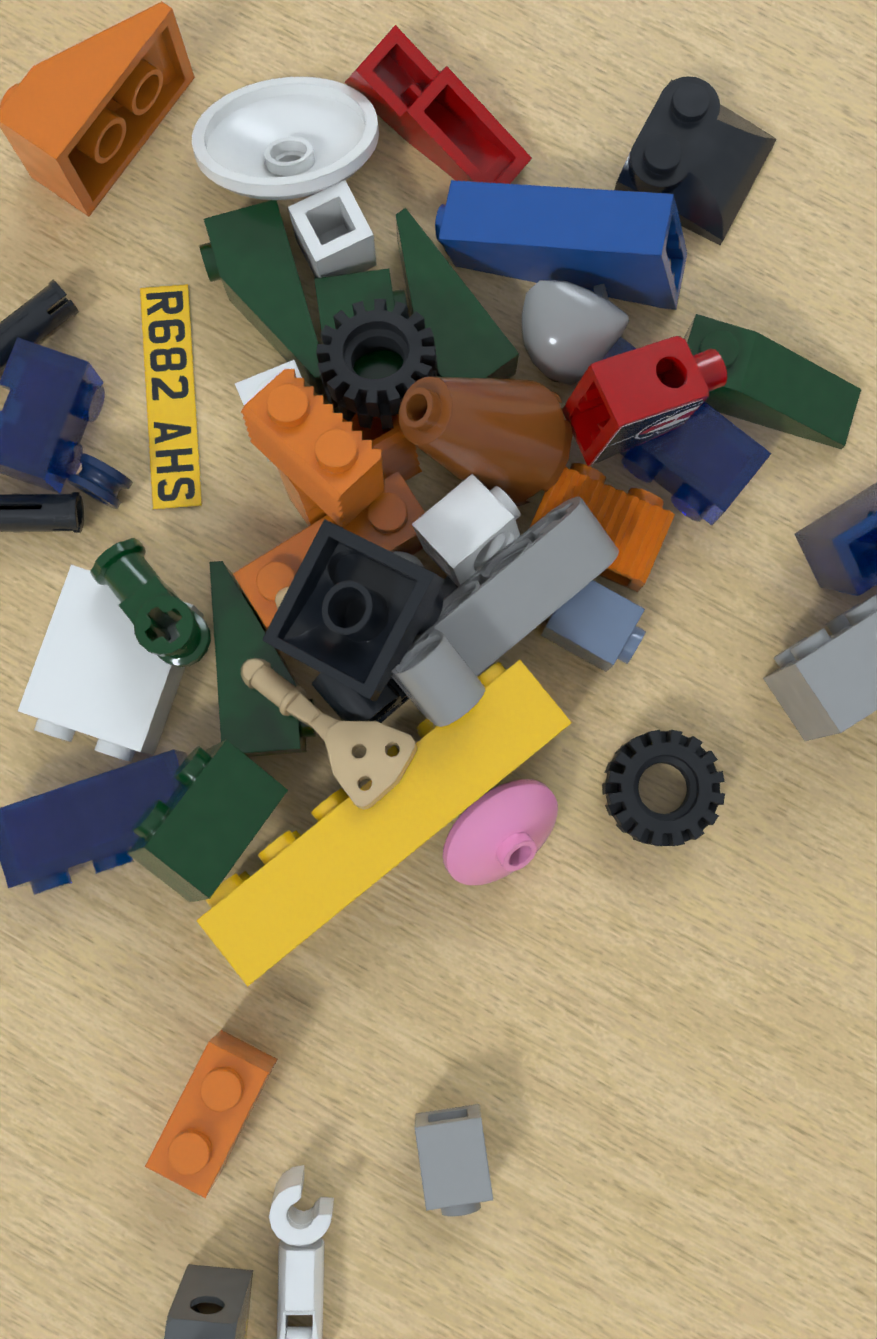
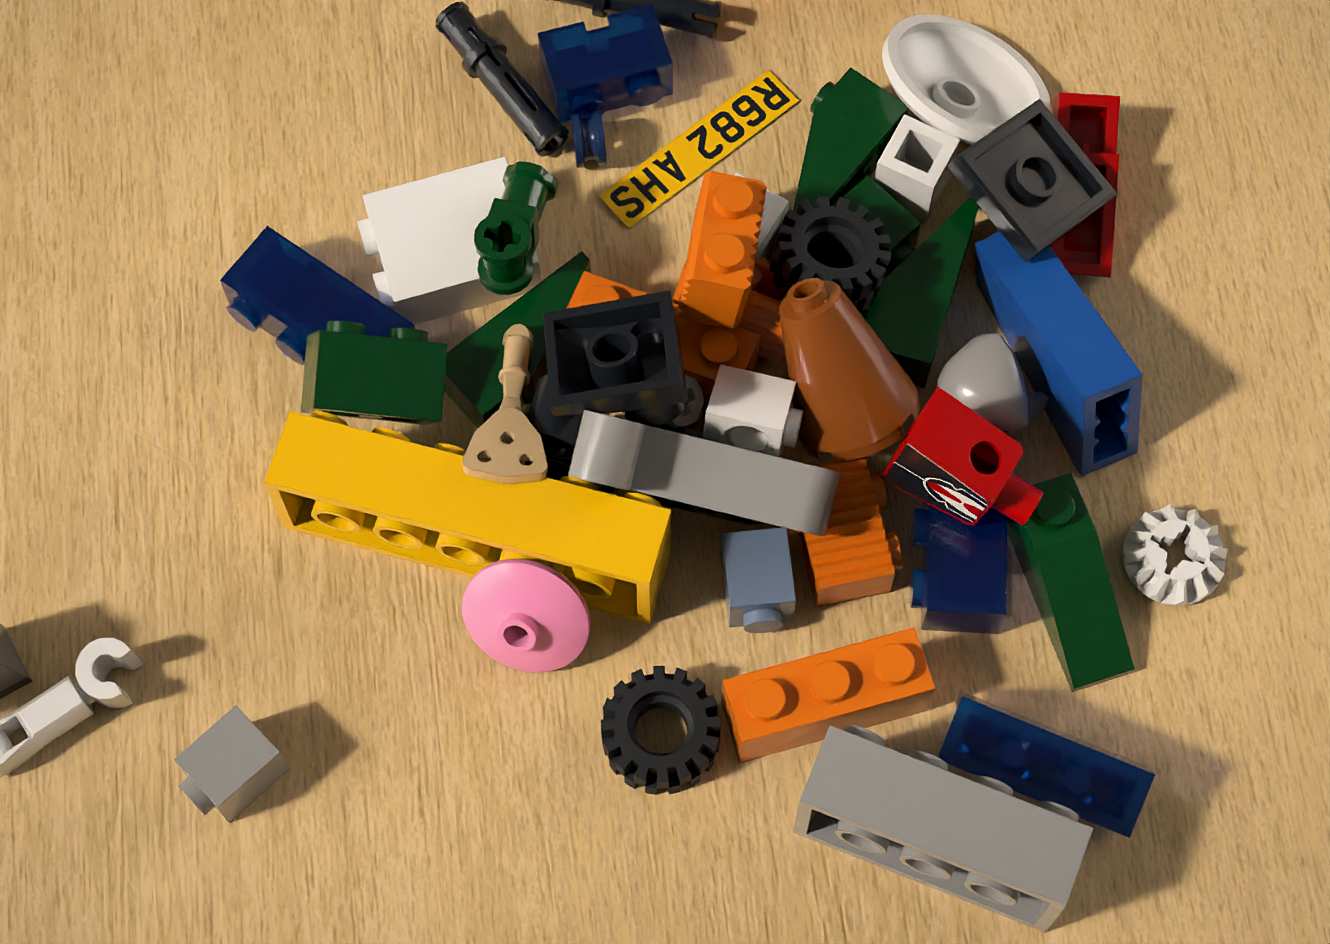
camera: 55 degrees right, 15 degrees down
(211, 1113) = (143, 551): orange brick -> none
(425, 150) = (1032, 180): none -> black tile
(699, 155) = (1217, 401): black slope -> none
(731, 638) = (838, 688): none -> orange brick
(788, 314) = (1146, 560): none -> white gear

